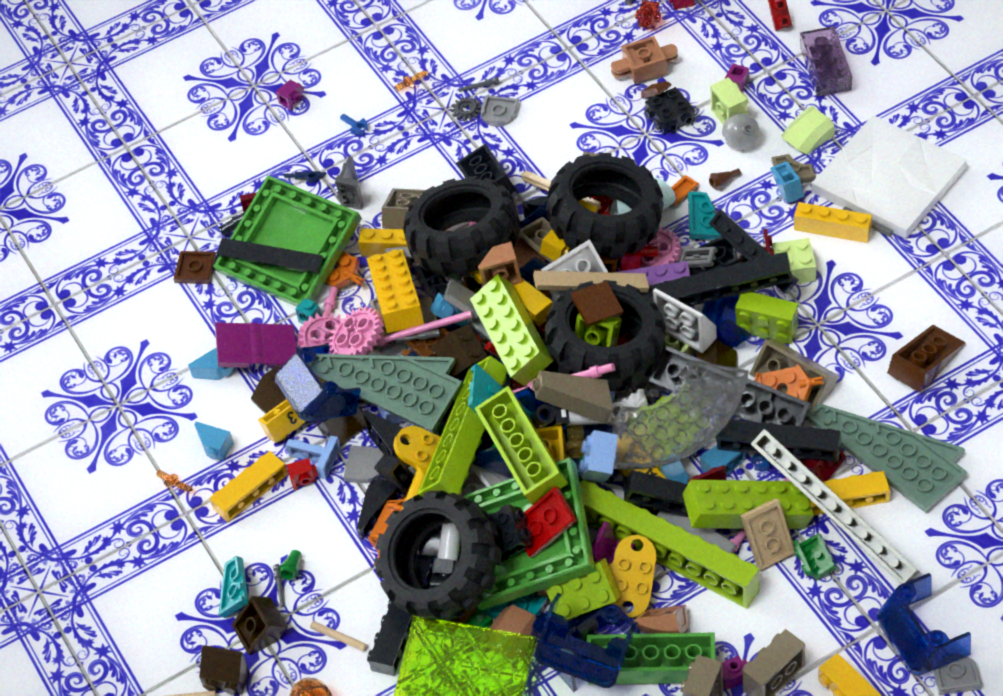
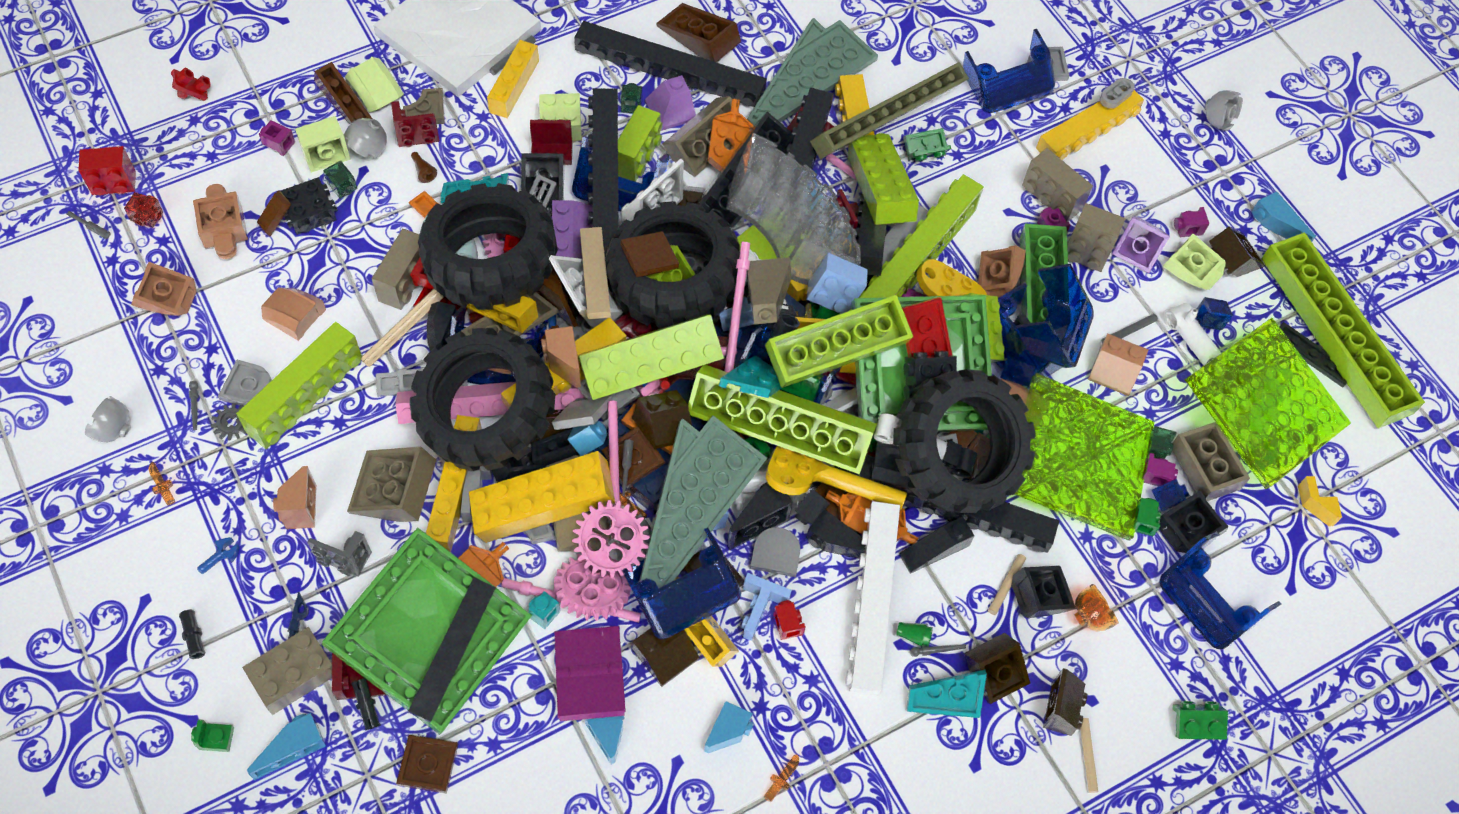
camera: 100 degrees left, 10 degrees up
(209, 187) = (292, 743): none -> dark azure slope
(218, 146) = (212, 736): none -> green bracket
(248, 486) = (801, 682): yellow brick -> none
(254, 167) = (289, 671): none -> dark tan brick
(289, 94) = (142, 635): magenta brick -> none
(292, 121) = (192, 634): none -> black pin
(312, 526) = (874, 600): none -> white brick
(328, 660) = (1042, 591): none -> black slope
(366, 573) = (938, 545): none -> black slope
(393, 152) = (297, 500): none -> nougat slope
(455, 37) = (109, 421): none -> light grey cylinder
(485, 165) = (368, 391): black slope -> none
(505, 140) = (300, 385): none -> lime brick
(567, 123) = (292, 311): none -> nougat slope
(573, 43) = (164, 291): none -> nougat slope
(699, 126) = (340, 179): none -> clear green brick
(743, 242) = (547, 140): black tile -> none
(758, 153) = (414, 129): none -> dark red bracket
(767, 534) = (913, 168): tan tile -> none
(786, 111) = (339, 93): none -> reddish brown slope
(787, 182) = (450, 107): dark azure slope -> none
(825, 61) = (279, 53): clear purple brick -> none
(827, 312) = (633, 93): none -> clear green brick
(829, 346) = (673, 101): none -> medium lavender slope
(877, 337) = (669, 63): none -> black brick

